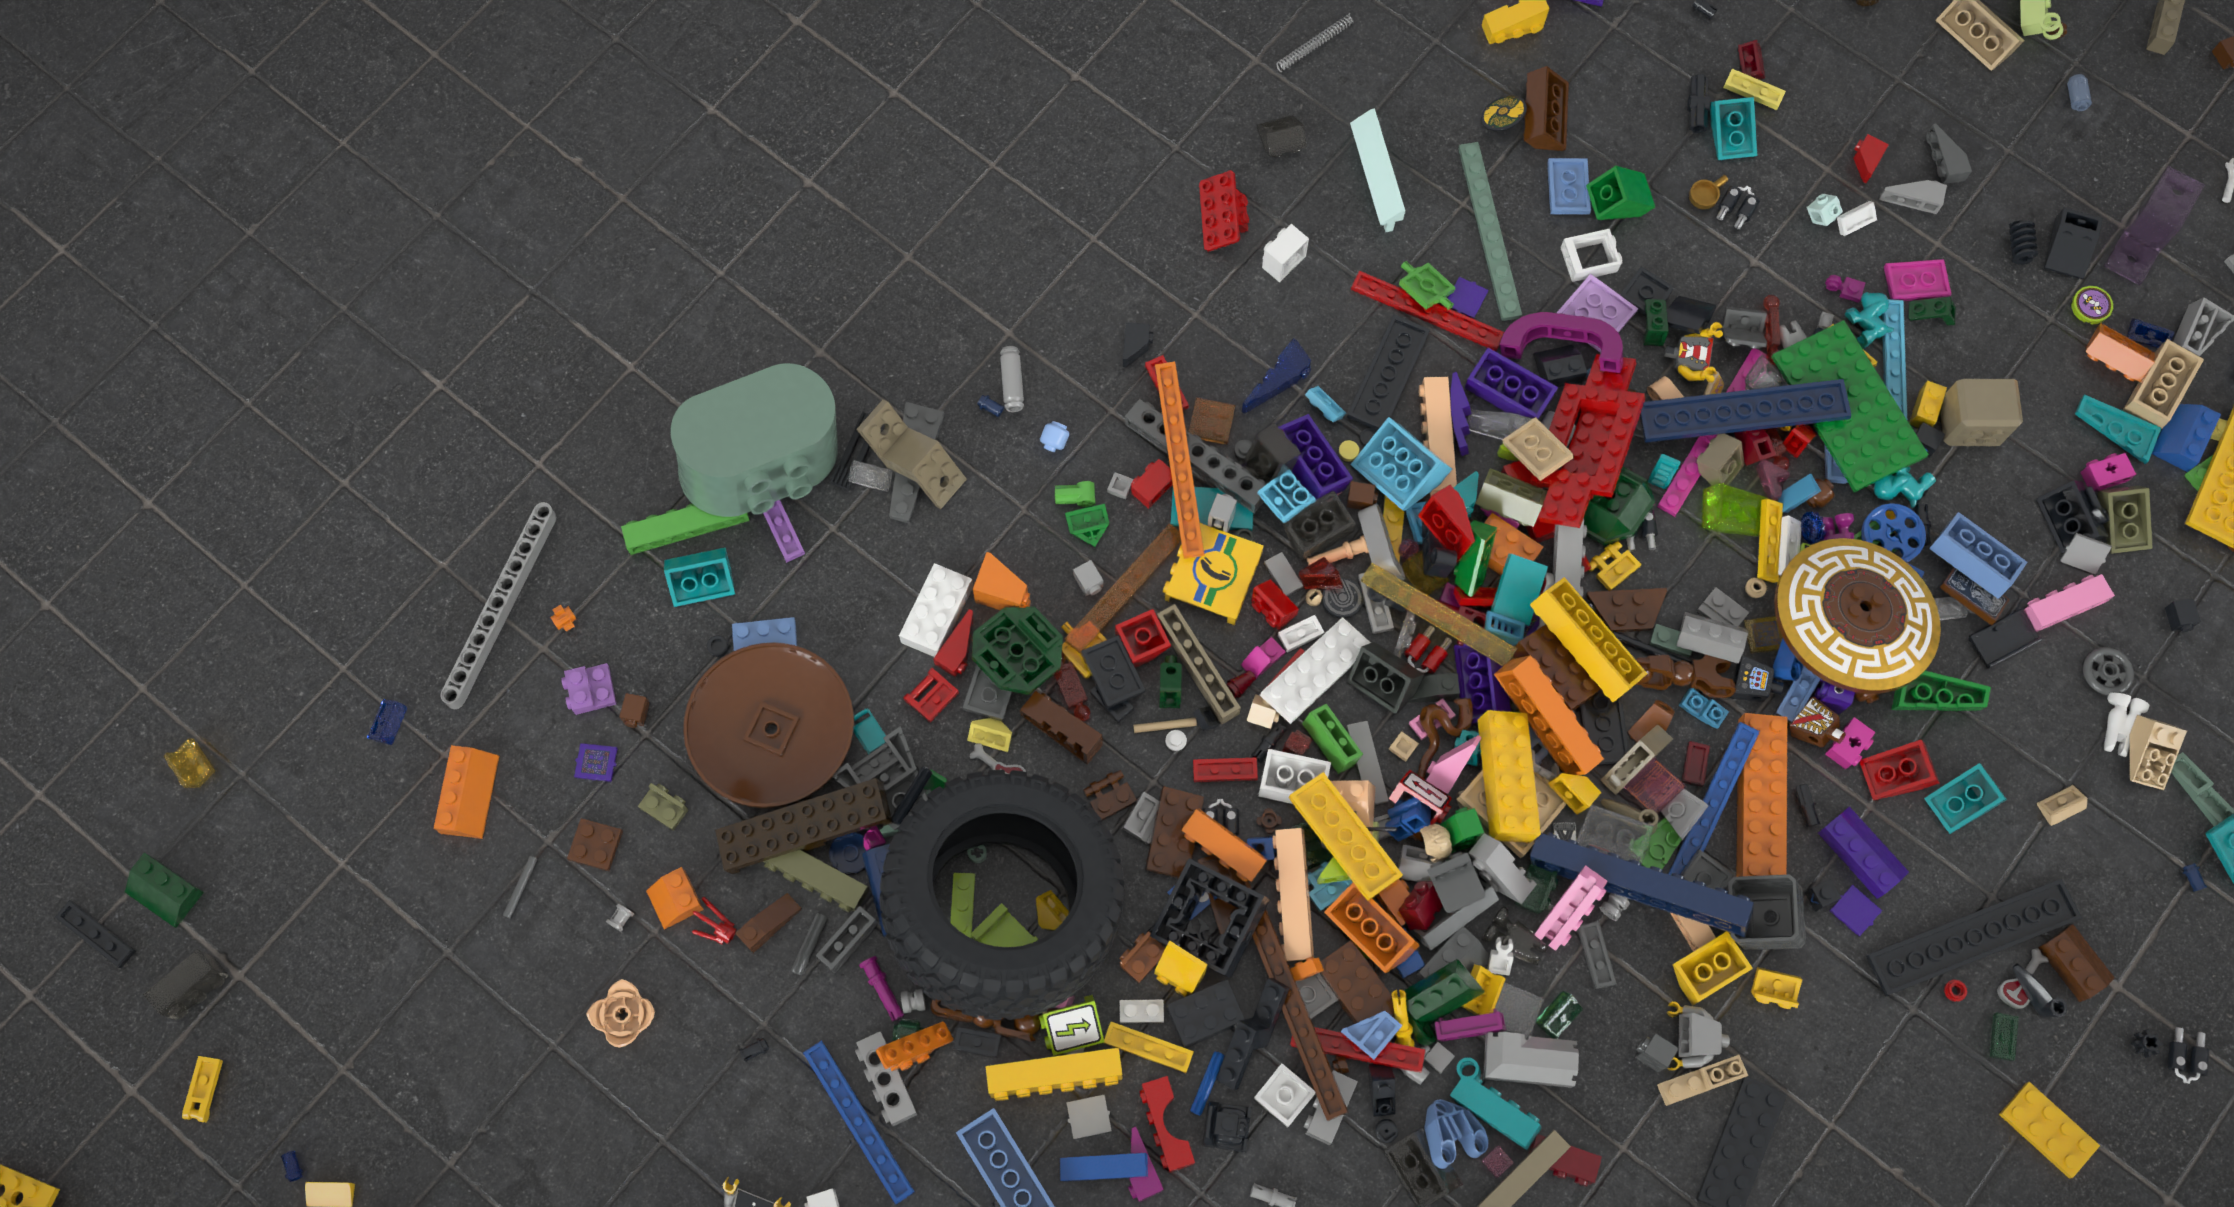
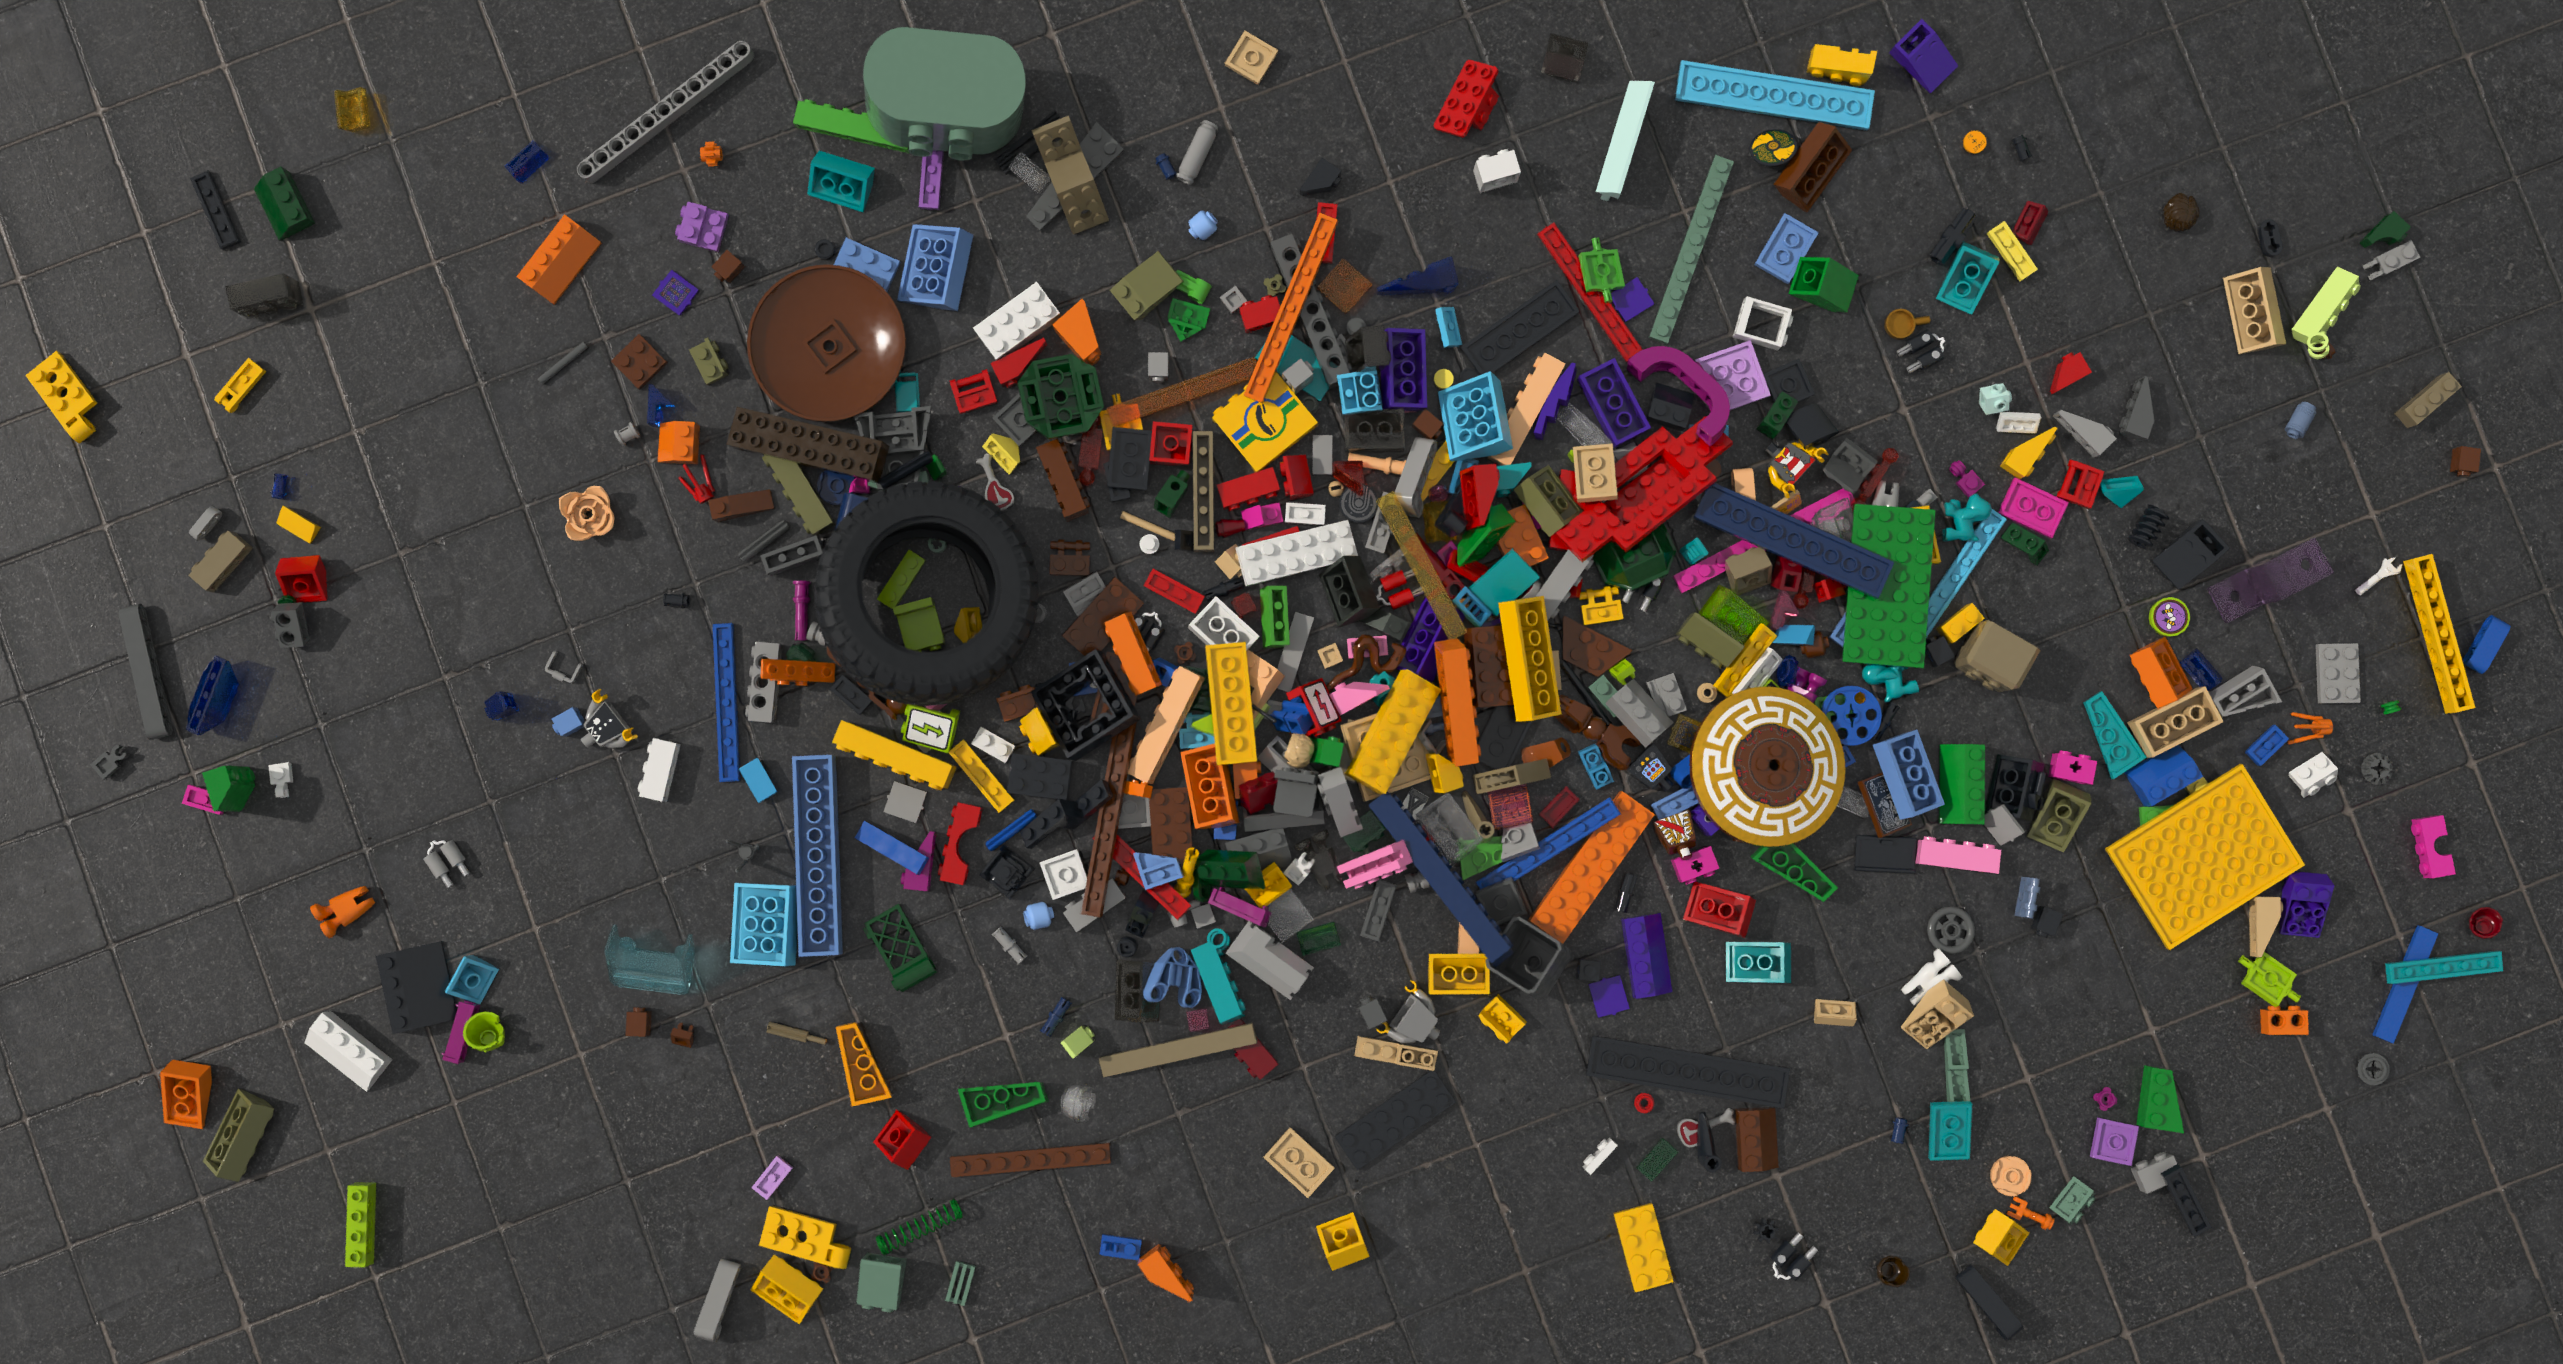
camera: 30 degrees right, 15 degrees up
(633, 869) = (656, 400): none -> clear blue slope
(676, 1192) = (558, 675): none -> light grey piece
(831, 604) = (935, 266): none -> medium blue slope
(933, 1179) = (758, 780): none -> dark azure slope
(1011, 277) = (1251, 57): none -> tan plate
(1036, 513) = (1146, 286): none -> olive slope
(1156, 452) = (1280, 288): none -> olive plate
(1236, 640) = (1248, 489): none -> red brick
(1284, 1150) = (1038, 915): none -> light blue head
(1475, 73) = (1774, 95): none -> medium azure plate
(1663, 24) = (1974, 142): none -> light orange piece
(1670, 610) = (1622, 670): none -> lime tile
(1729, 539) = (1709, 640): none -> olive slope
(1881, 244) = (2021, 459): none -> yellow slope
(1948, 237) = (2086, 487): none -> red plate
(1950, 1071) = (1604, 1149): none -> white plate
(1978, 225) = (2121, 489): none -> teal slope
(2028, 535) = (1962, 783): none -> green slope
(2152, 602) = (2027, 897): none -> sand blue plate

